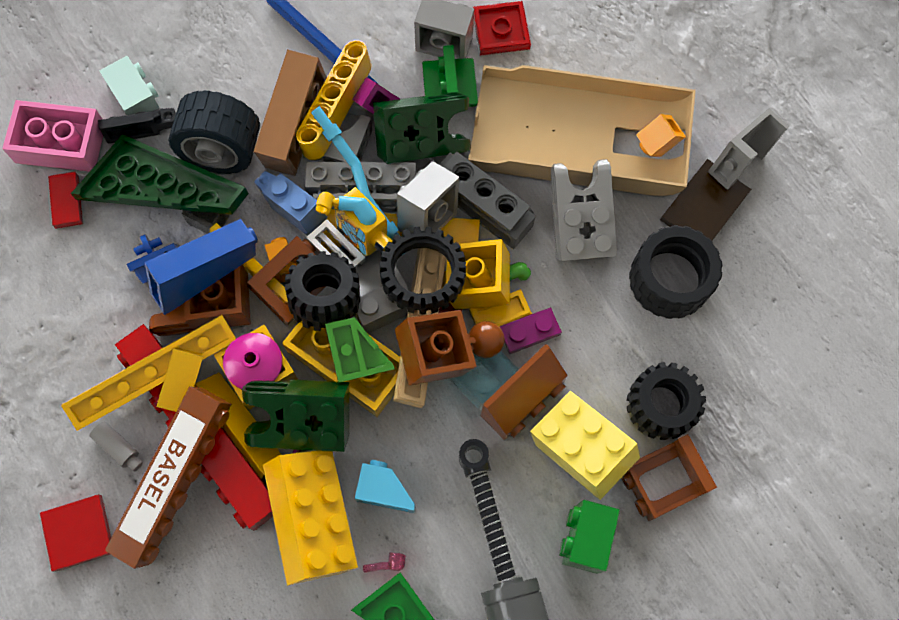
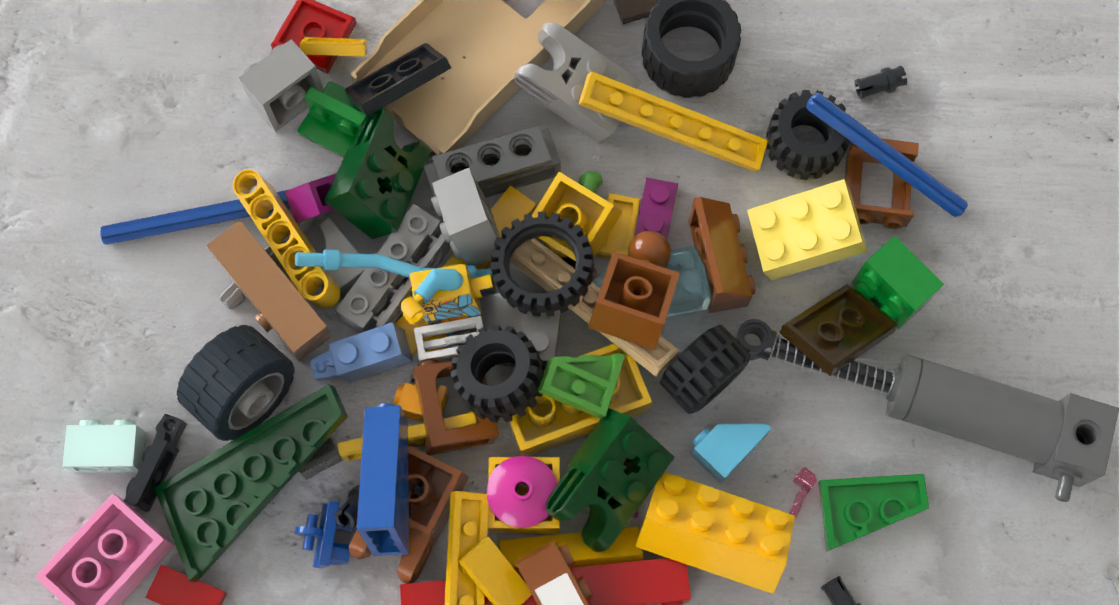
camera: 55 degrees left, 0 degrees up
(425, 433) = (705, 369): none -> black tyre
(495, 42) = (334, 46): none -> yellow tile
(499, 94) = (397, 79): none -> black tile
(523, 515) = (838, 329): none -> dark brown tile
(600, 297) = (672, 121): none -> yellow plate
(688, 468) = (886, 154): none -> blue axle
(751, 431) = (880, 82): none -> black pin

